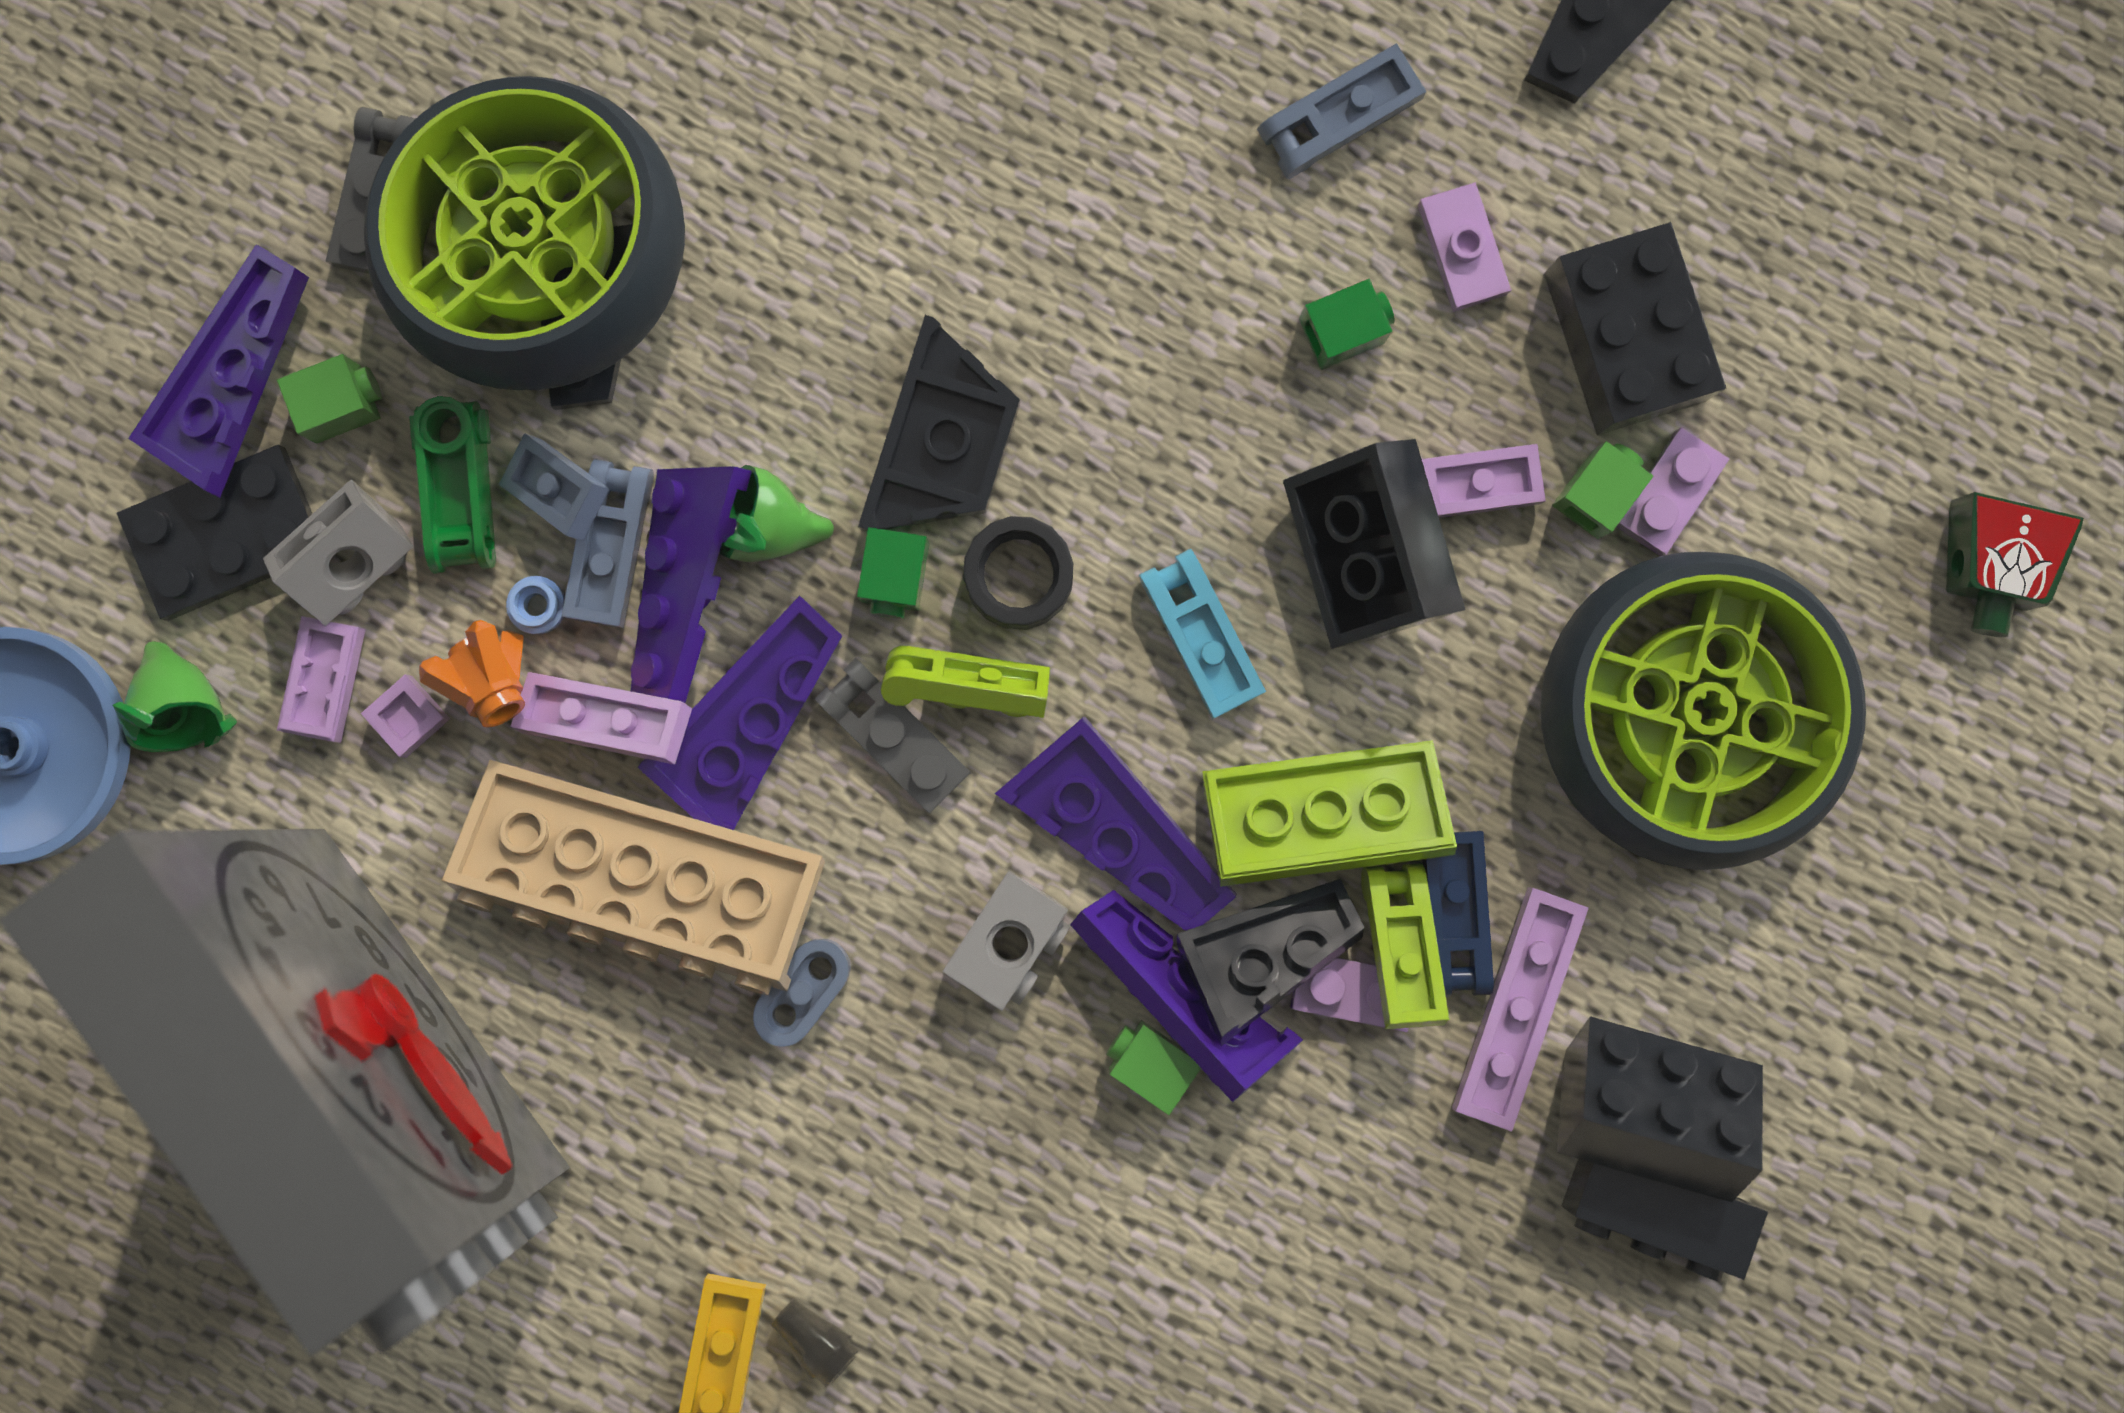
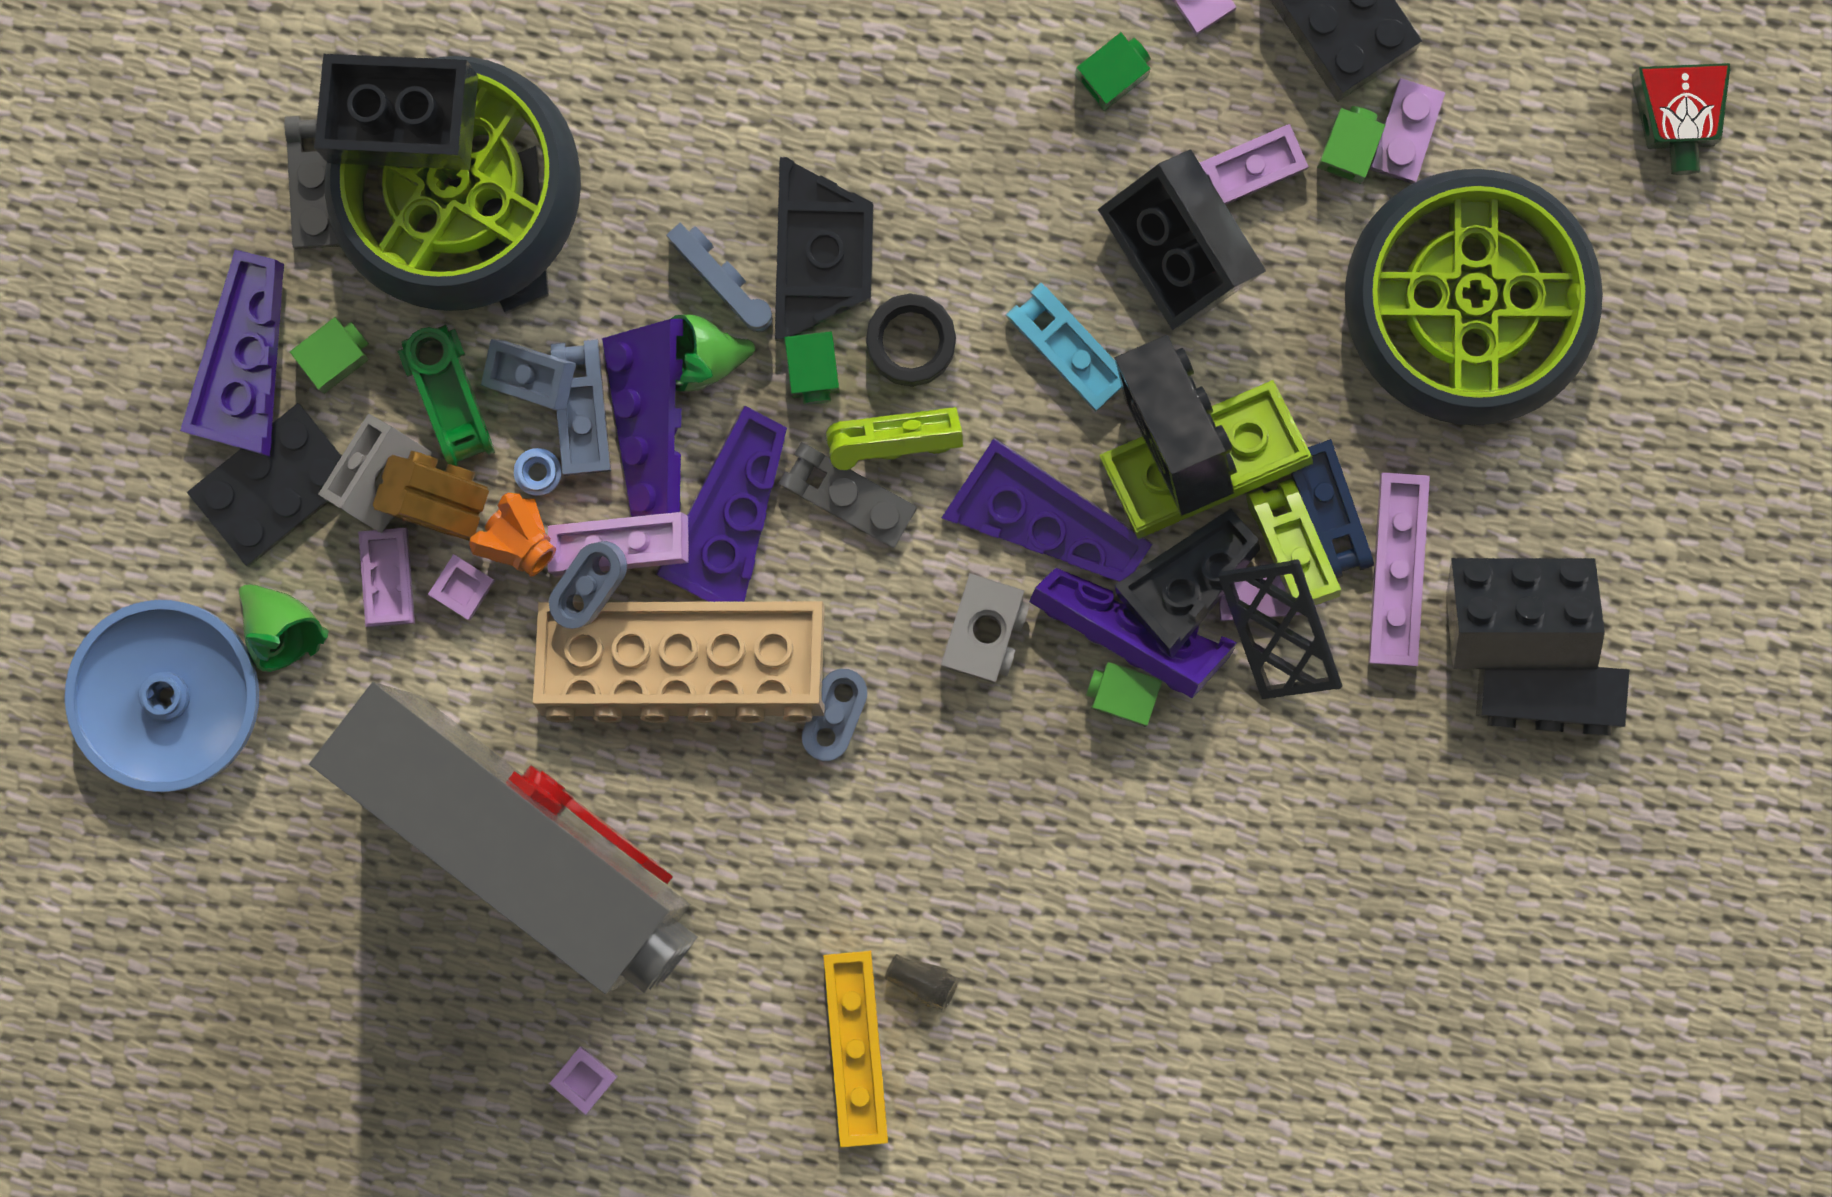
camera: 10 degrees left, 0 degrees up
(366, 1361) = (583, 1080): none -> lavender plate
(391, 599) = (431, 497): none -> pearl gold brick
(465, 118) = (396, 111): none -> black brick
(550, 753) = (589, 582): none -> sand blue plate
(816, 439) = (722, 279): none -> sand blue plate
(1307, 764) = (1177, 424): none -> black brick
(1364, 1108) = (1257, 654): none -> black window

